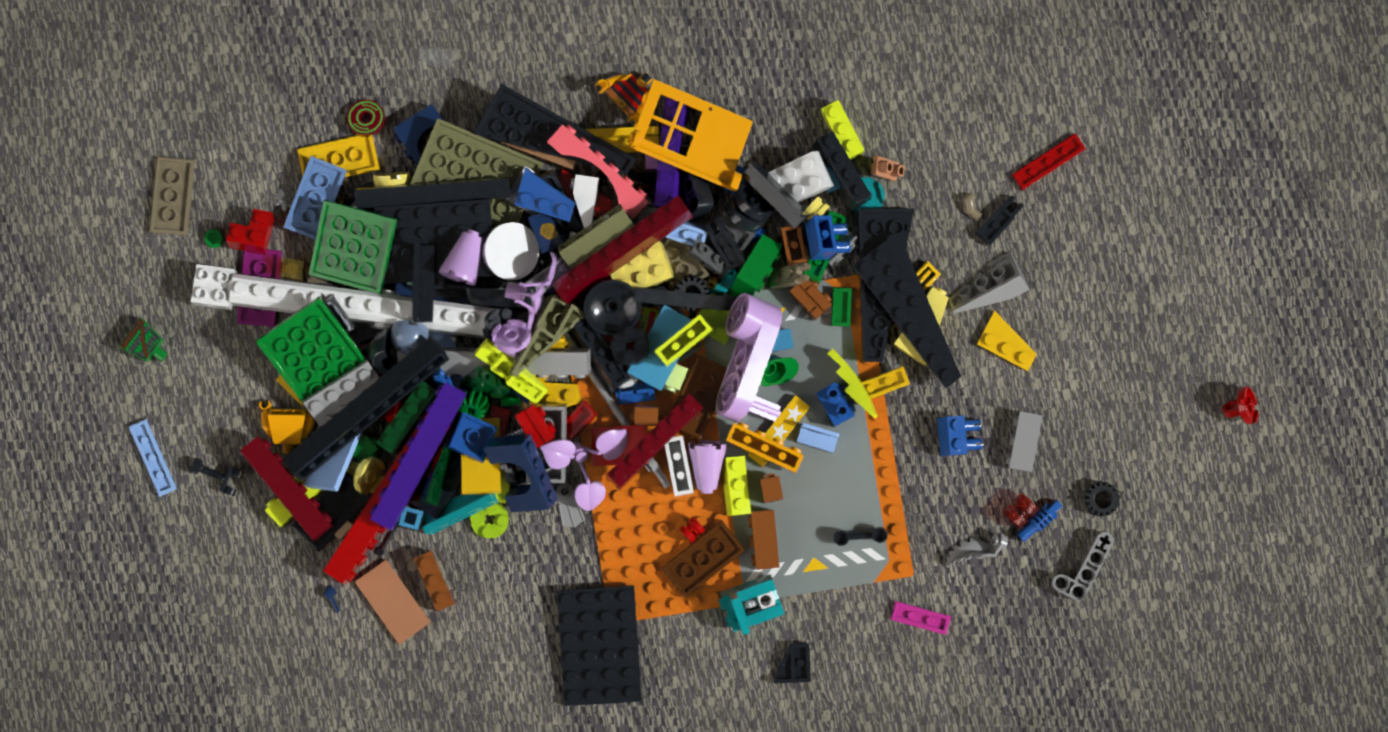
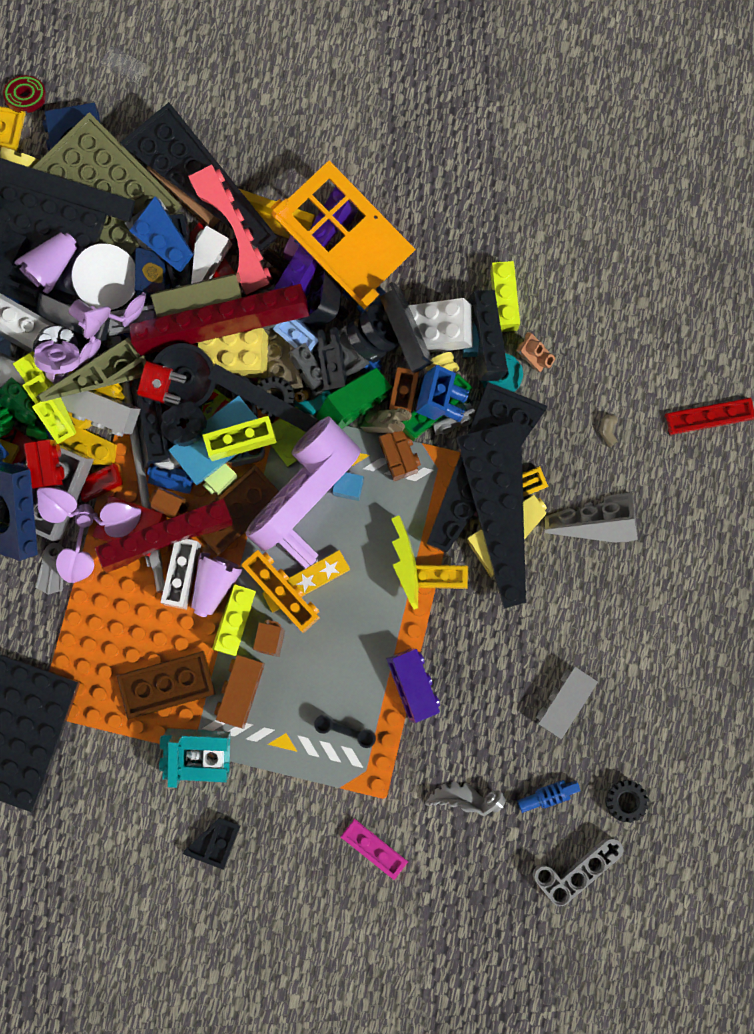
camera: 25 degrees right, 5 degrees down
(593, 321) = (156, 382): none -> red piece
(627, 92) = (294, 166): torso -> none
(695, 526) = (166, 647): red wheel -> none
(779, 371) = (331, 516): green piece -> none
(817, 437) = (344, 605): light blue panel -> none
(835, 404) = (377, 577): blue brick -> none
(841, 307) = (427, 478): green tile -> none
(899, 478) = (414, 685): none -> dark purple brick
(953, 435) = (491, 664): blue brick -> none
(998, 222) = (631, 456): black hinge -> none
(1006, 343) = (589, 588): yellow wing -> none
(1025, 505) = (539, 773): clear red wheel -> none

